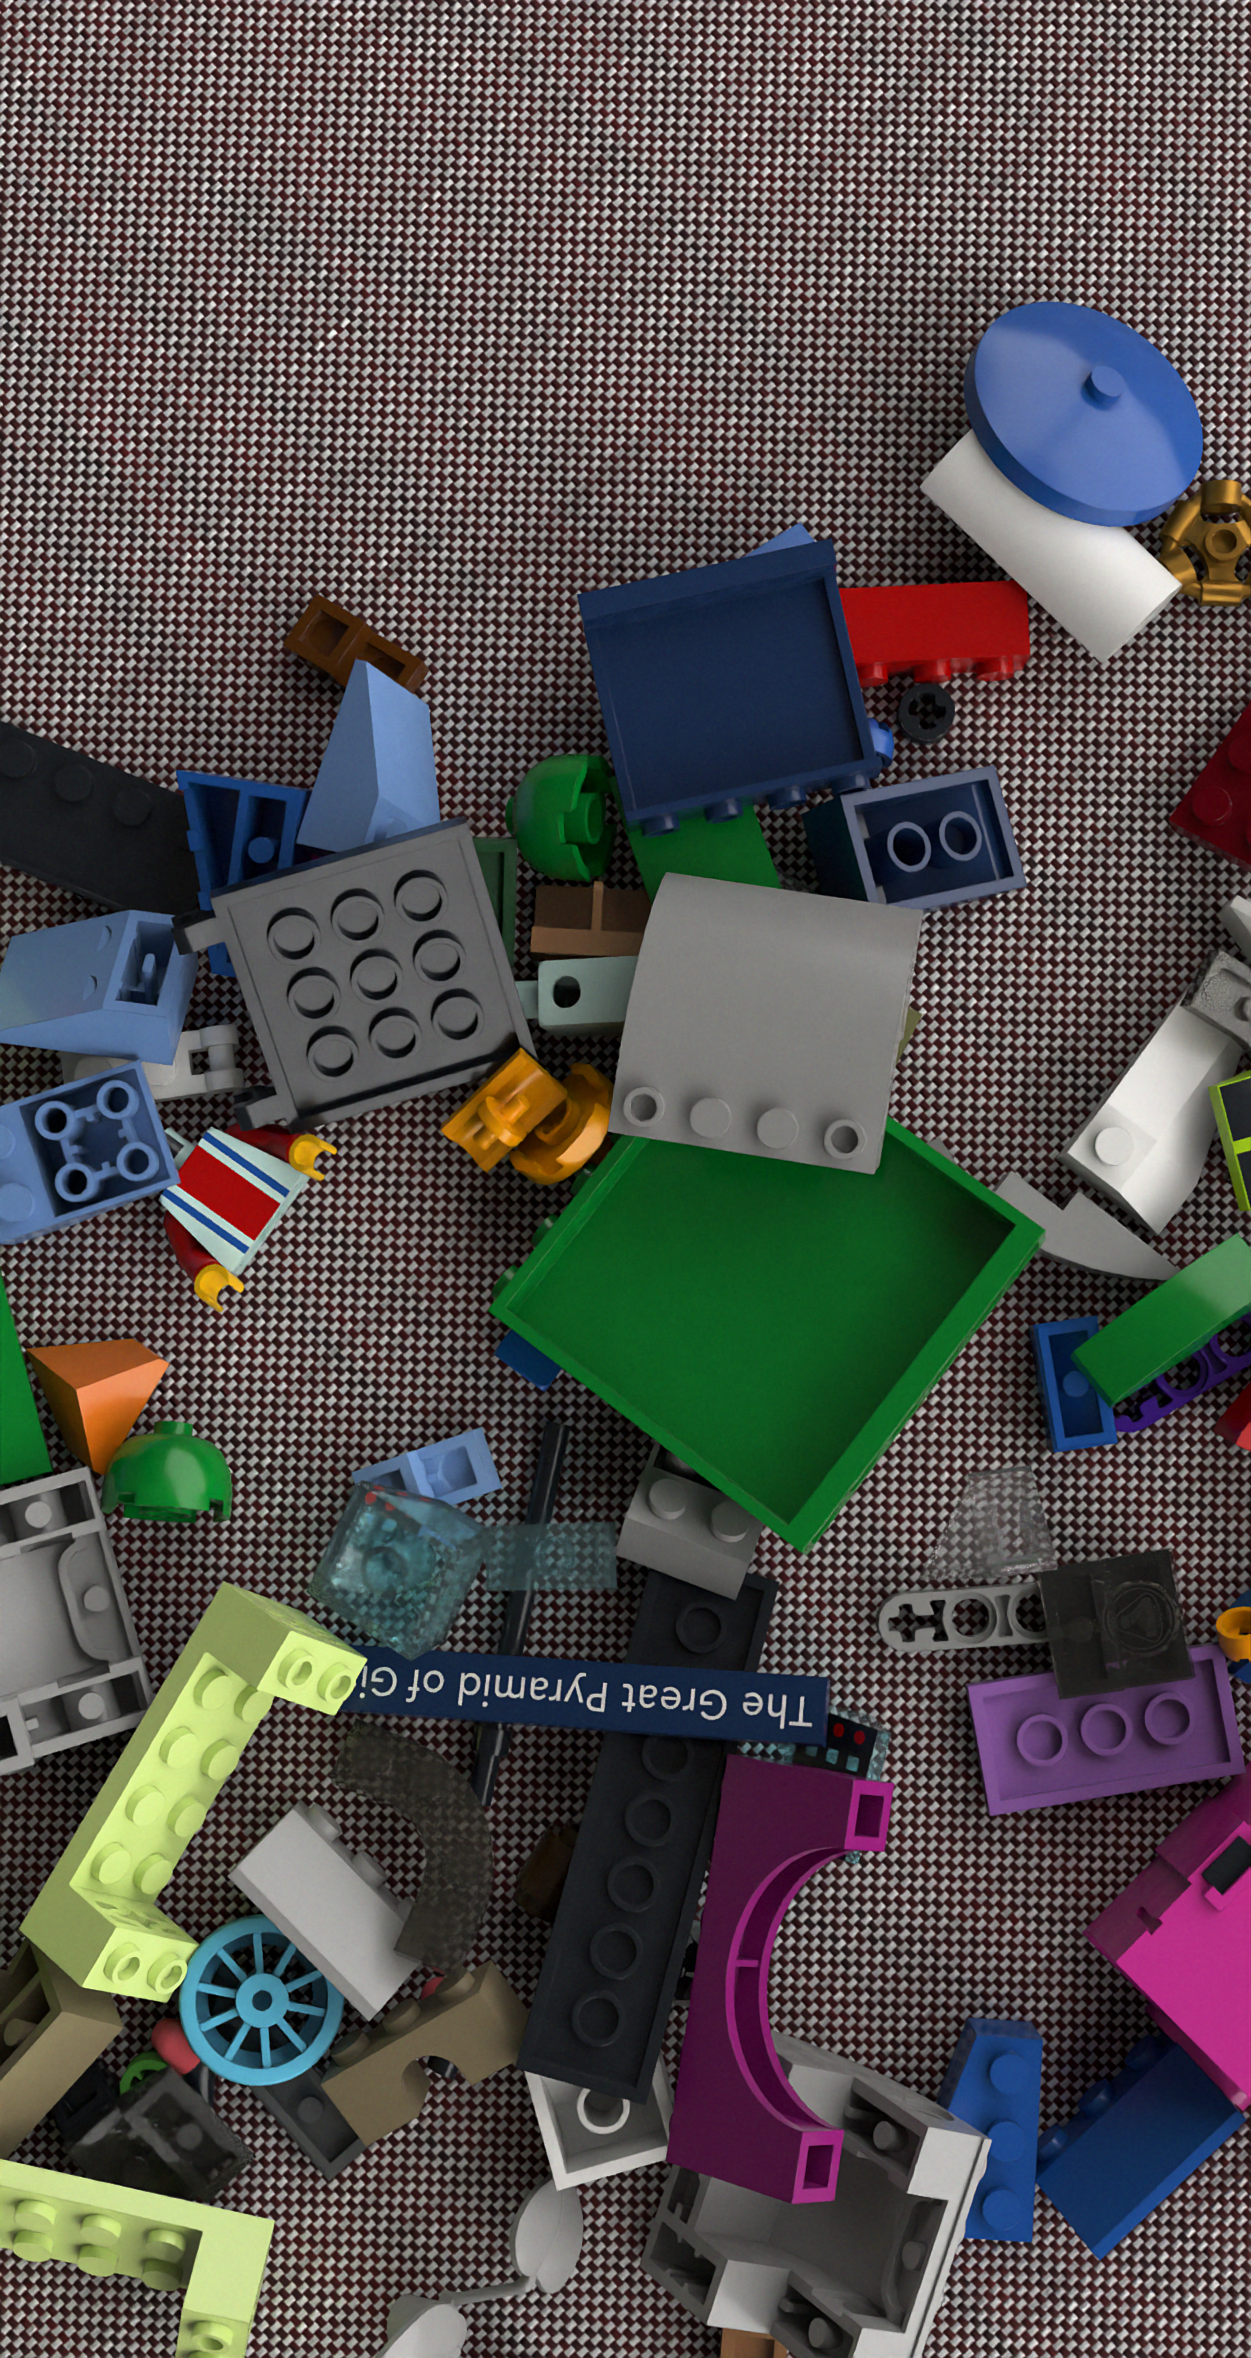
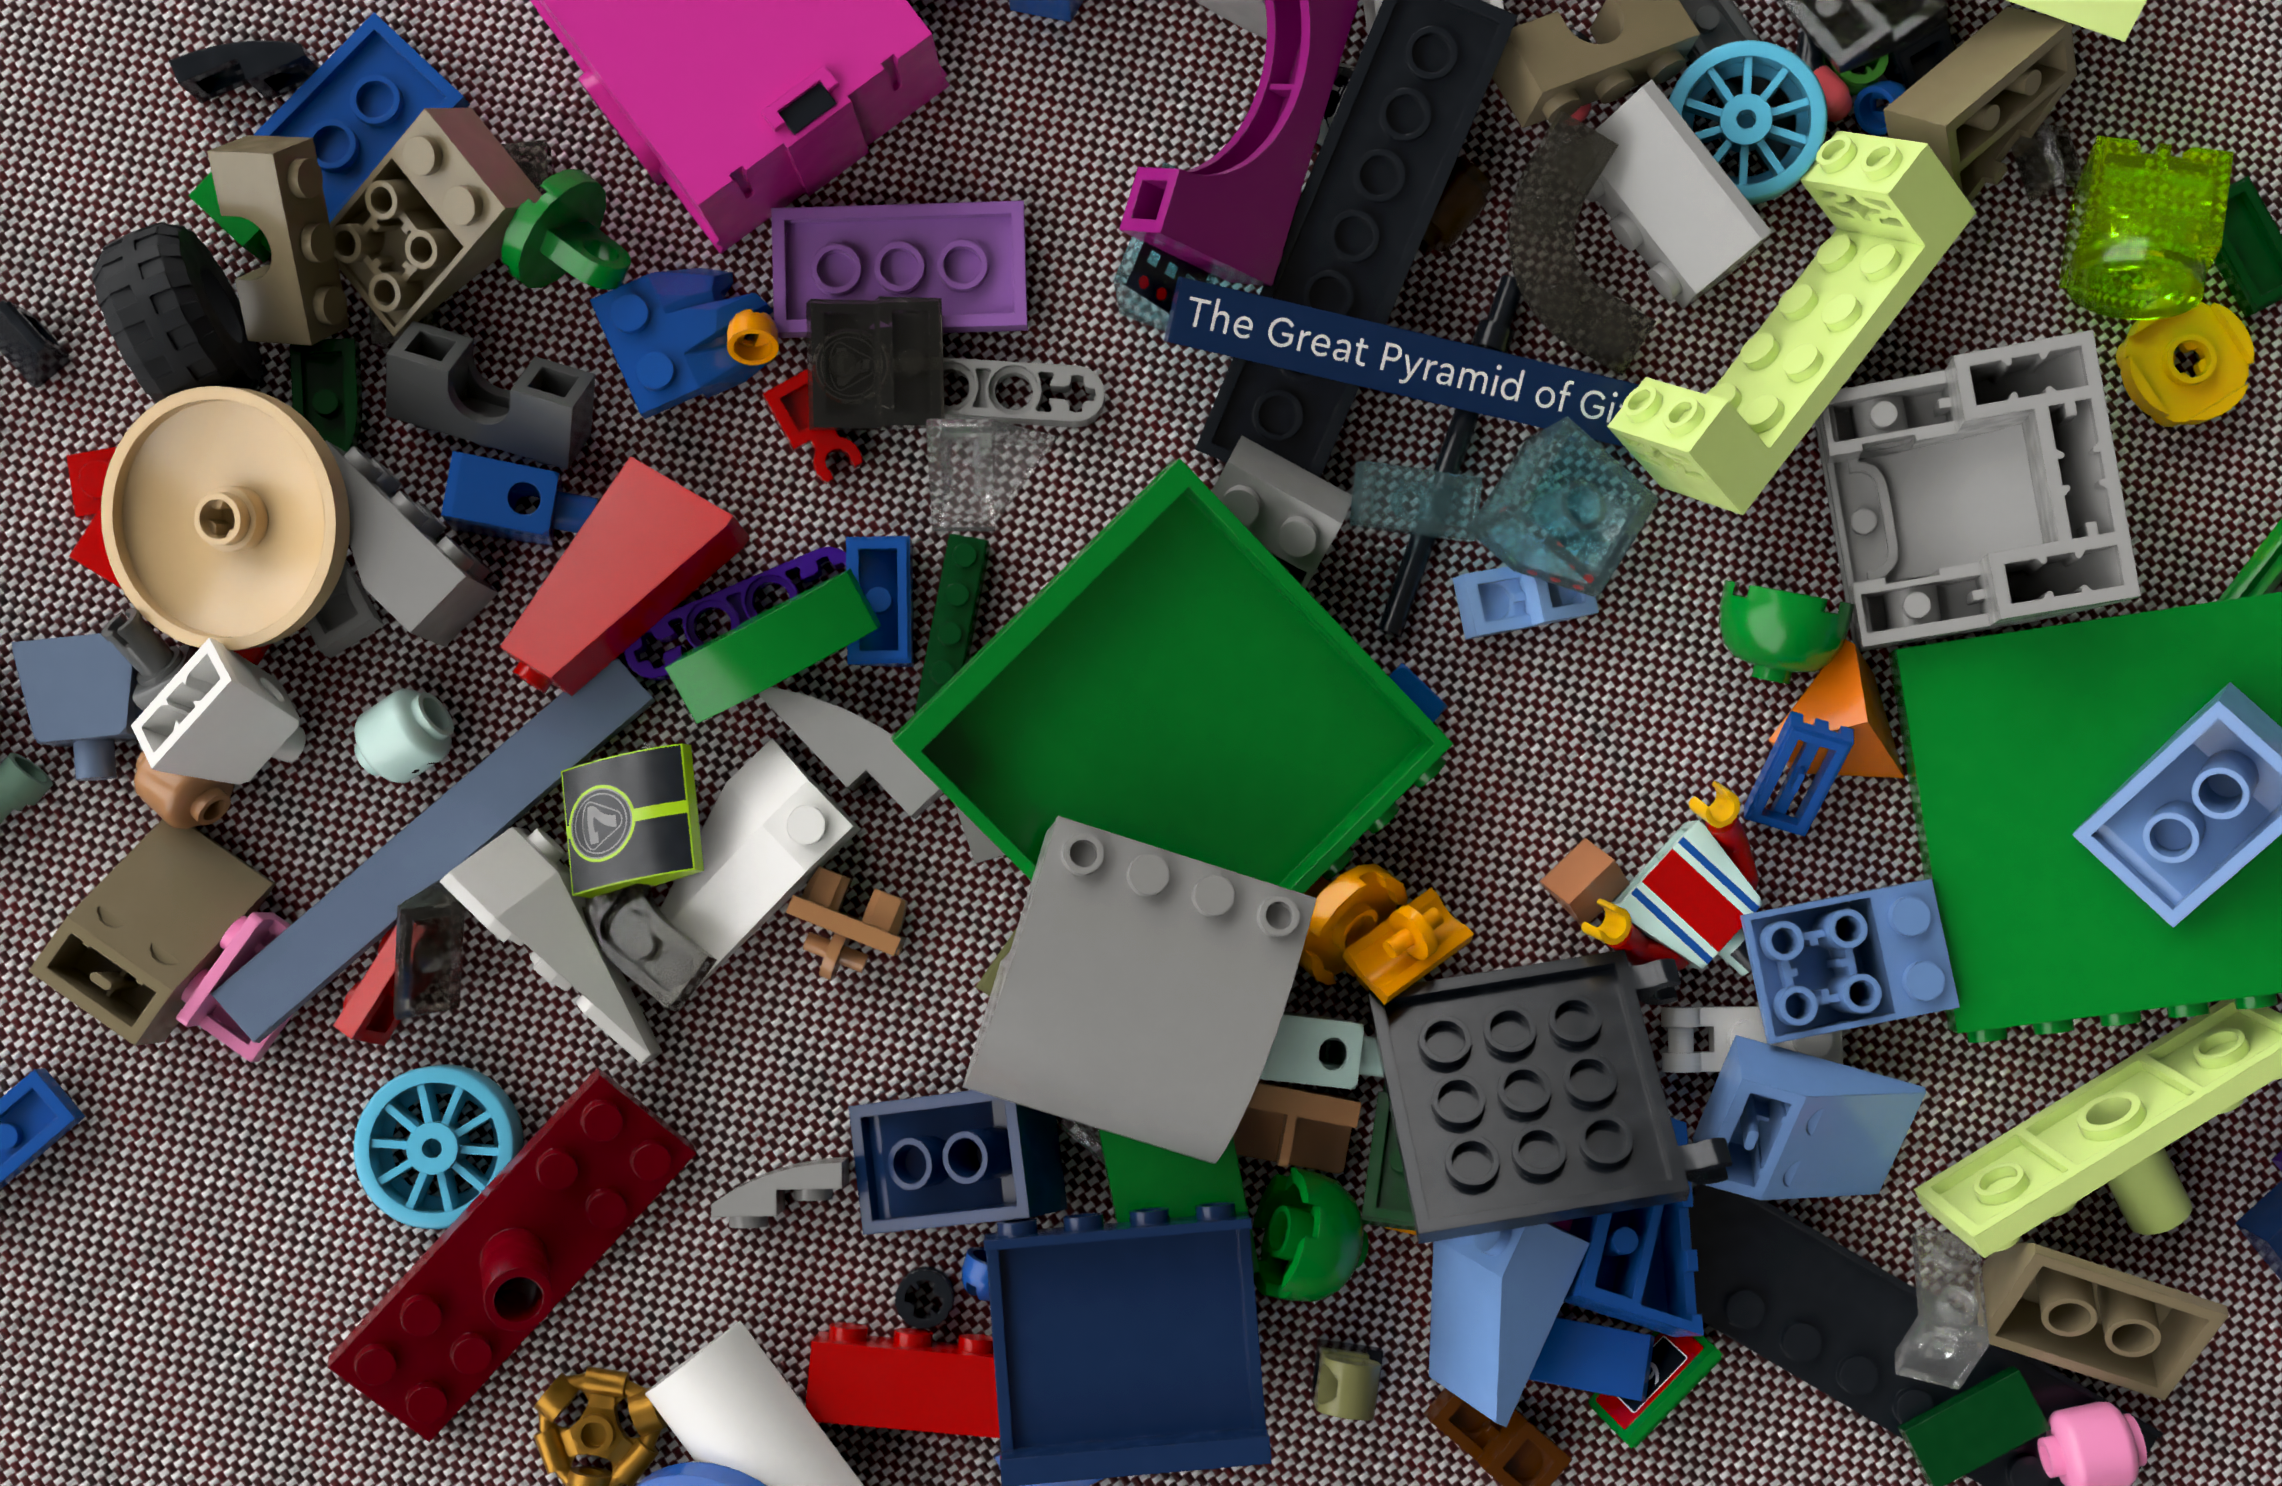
camera: 175 degrees left, 0 degrees up
(128, 1366) = (1814, 736): none -> blue tile
(135, 2038) = (1867, 114): none -> blue hinge
(213, 724) = (1674, 1371): none -> slope
(273, 739) = (1596, 1359): none -> blue slope
(334, 1202) = (1583, 879): none -> nougat slope
(508, 688) = (1346, 1379): none -> olive leg
(996, 1380) = (954, 613): none -> dark green piece
(1082, 1071) = (822, 907): none -> medium nougat hips
(1094, 787) = (765, 1194): none -> light grey slope
(1193, 1568) = (791, 411): none -> red plate

